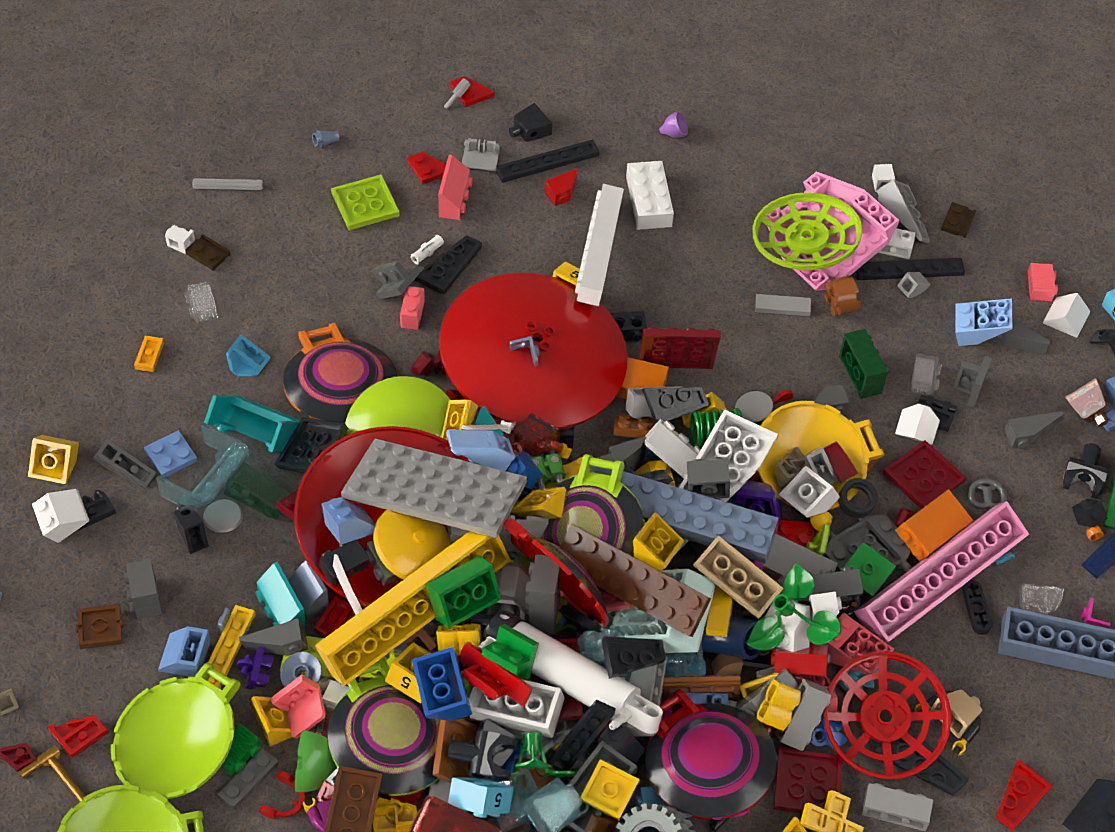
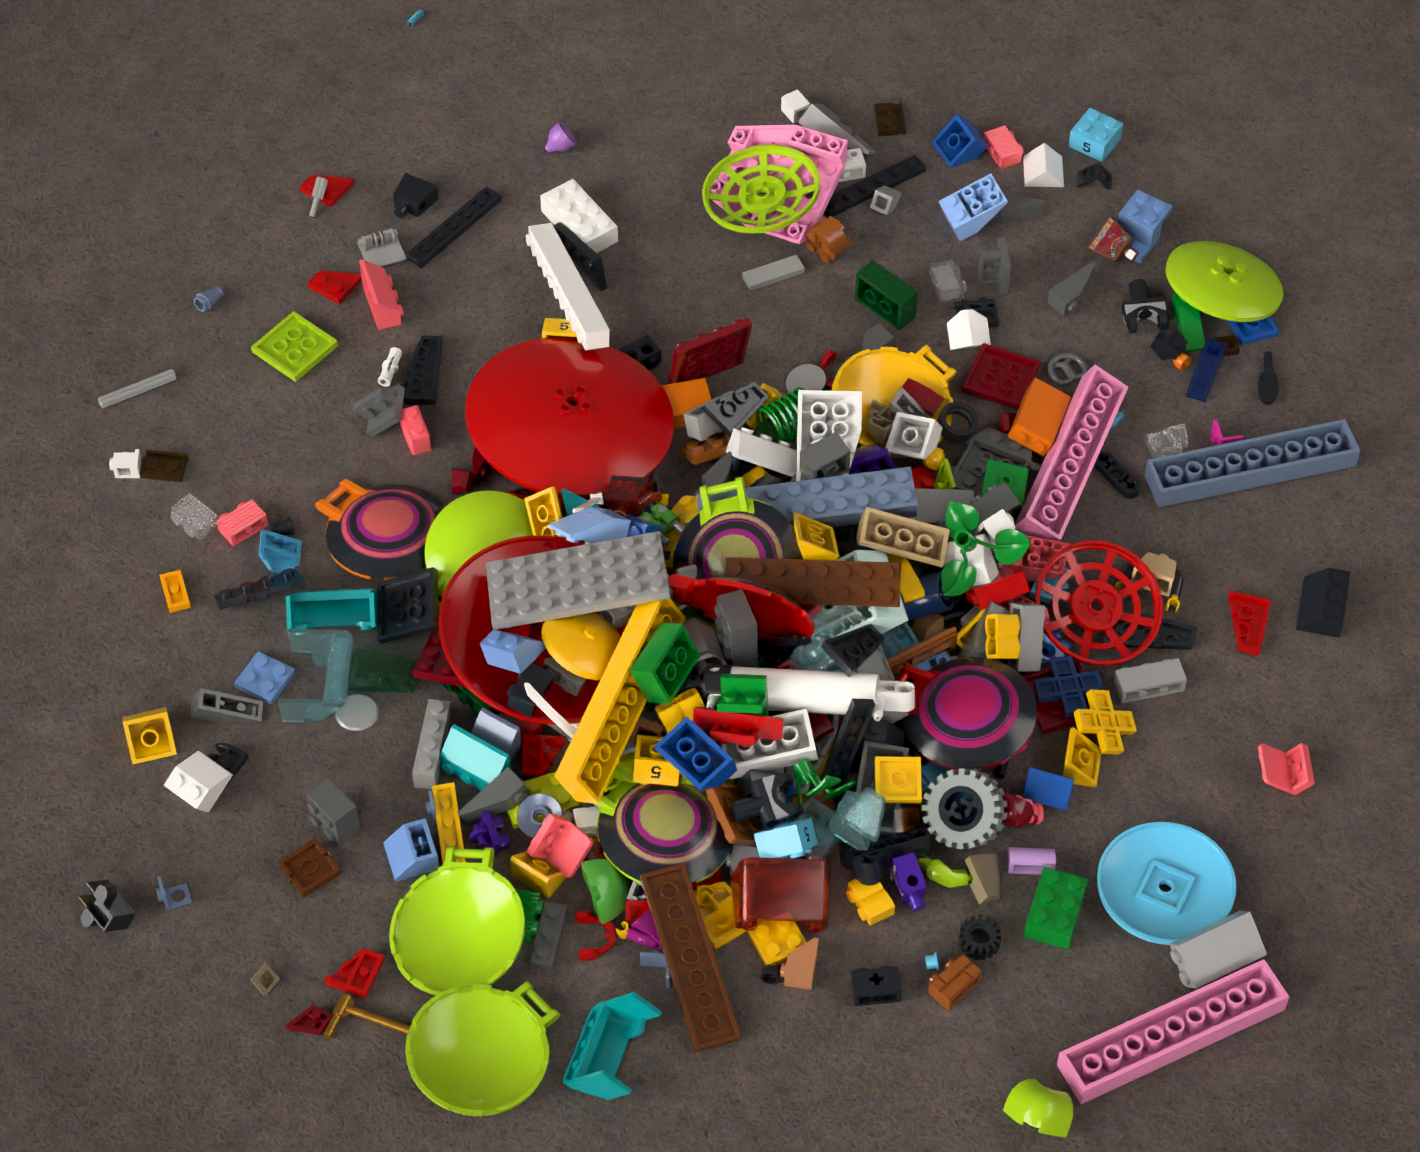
camera: 25 degrees left, 0 degrees up
(188, 518) = (338, 735): black torso -> none
(227, 383) = (261, 589): none -> black wing
(234, 322) = (242, 522): none -> coral brick
(243, 585) = (431, 742): none -> light grey brick
(262, 340) = (283, 527): none -> black bush
(525, 343) = (578, 412): sand blue bracket -> none
(542, 503) = (684, 551): yellow slope -> none
(561, 187) = (485, 248): red slope -> none
(632, 224) = (583, 255): none -> black wing
(817, 776) = (1067, 685): none -> dark blue plate
(1006, 262) = (959, 142): none -> blue slope

